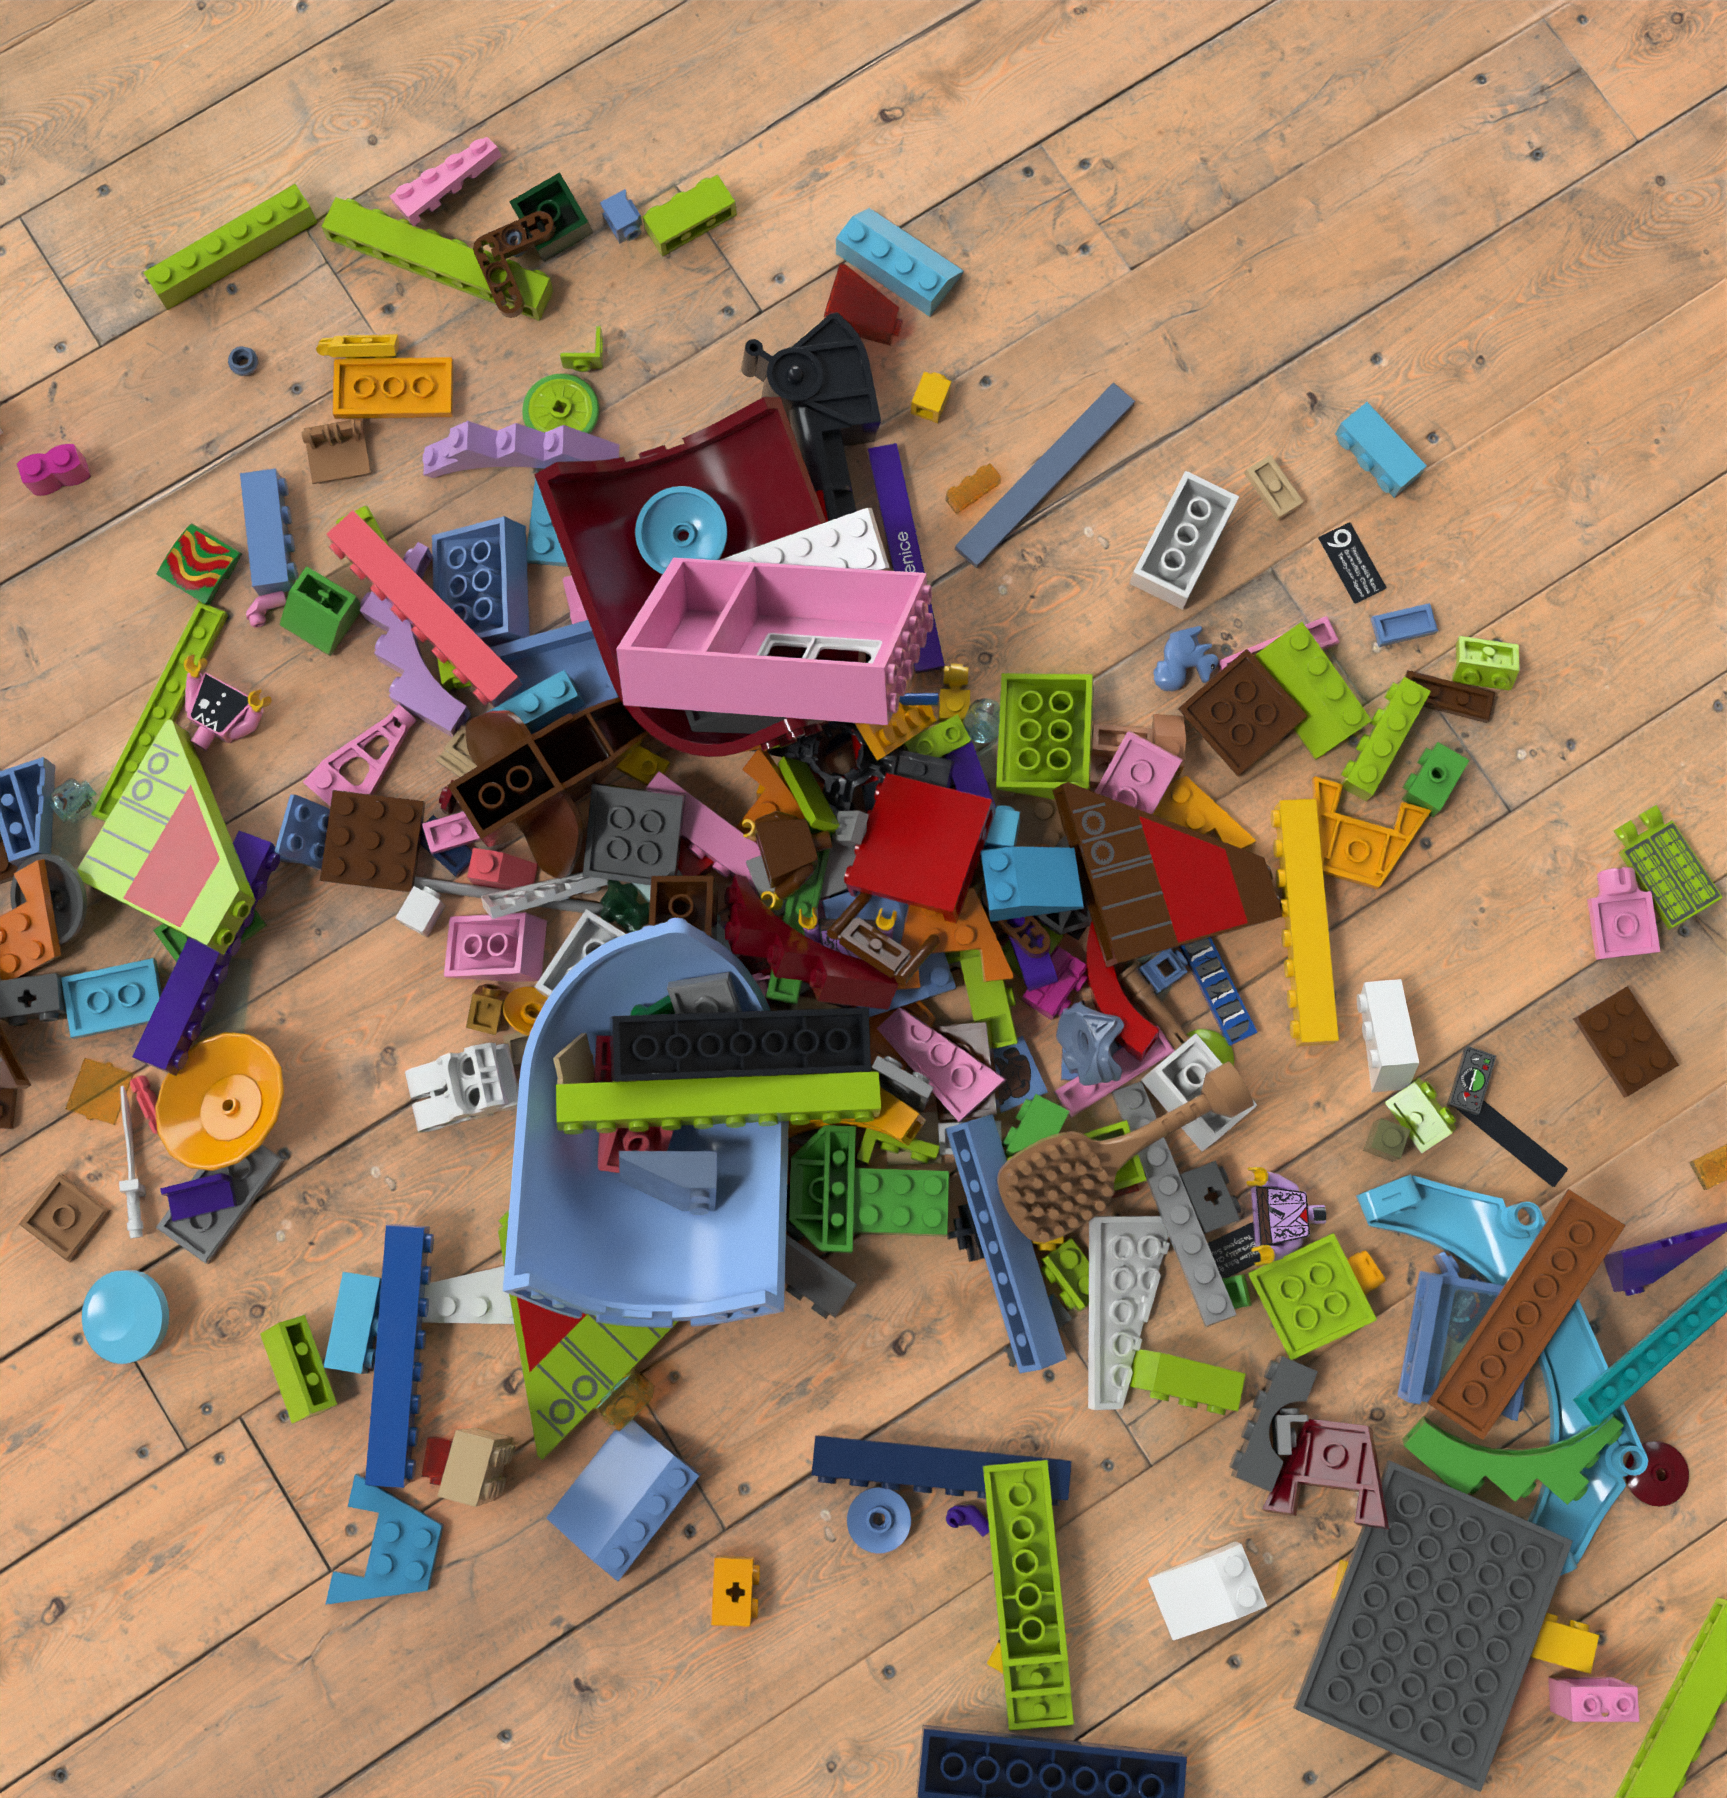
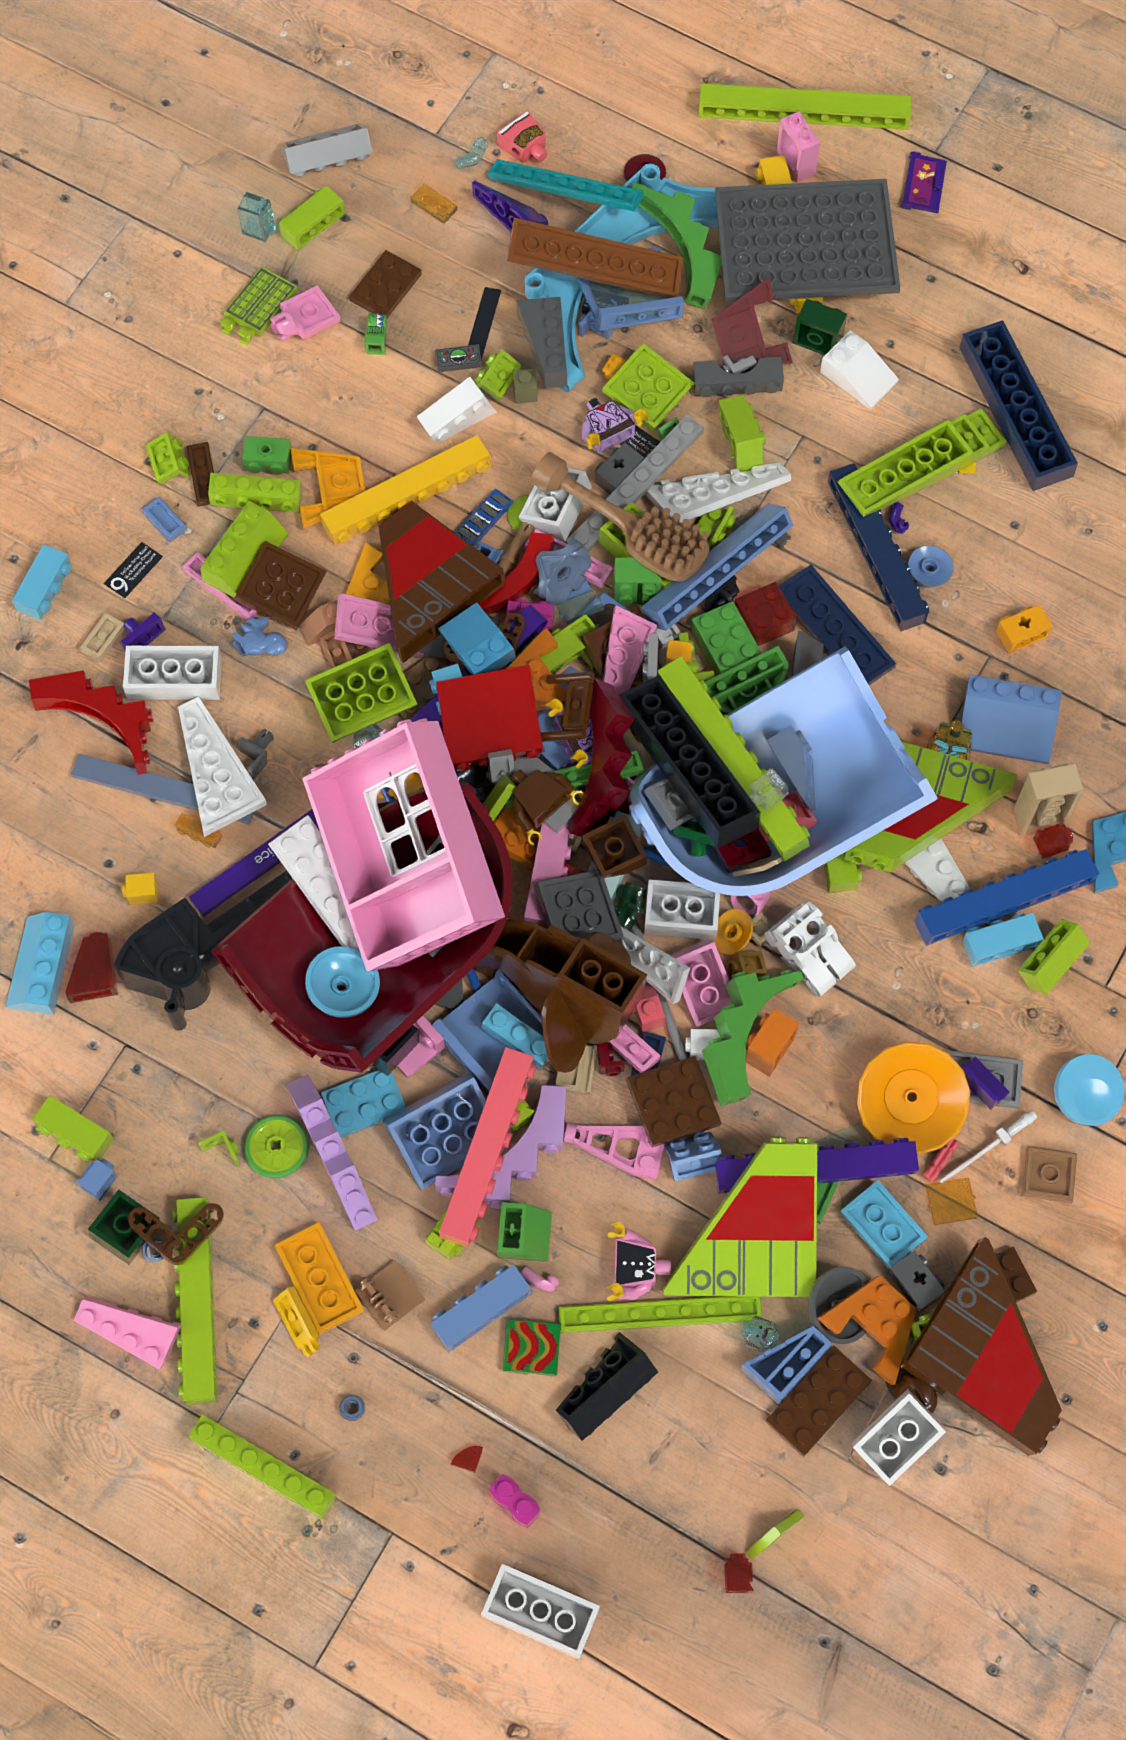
camera: 115 degrees left, 10 degrees down
(112, 616) = (606, 1387): none -> black wedge
(127, 450) = (468, 1458): none -> clear red tile
(375, 981) = (771, 1041): none -> orange brick
(416, 950) = (727, 1053): none -> bright green arch
(640, 1114) = (771, 797): none -> clear window
(857, 1351) = (834, 623): none -> dark blue plate
(916, 1270) = (766, 613): none -> clear red brick
(1025, 534) = (219, 778): none -> white wing
(1039, 1051) = (579, 605): none -> clear light blue piece
(1042, 593) = (256, 751): none -> dark grey bracket
(1179, 452) = (76, 694): none -> red arch
(1256, 531) = (142, 633): none -> dark purple tile
(1292, 1569) = (819, 327): none -> dark green brick
(1439, 1193) = (544, 331): none -> dark grey wedge
(1554, 993) = (376, 334): none -> bright green leg

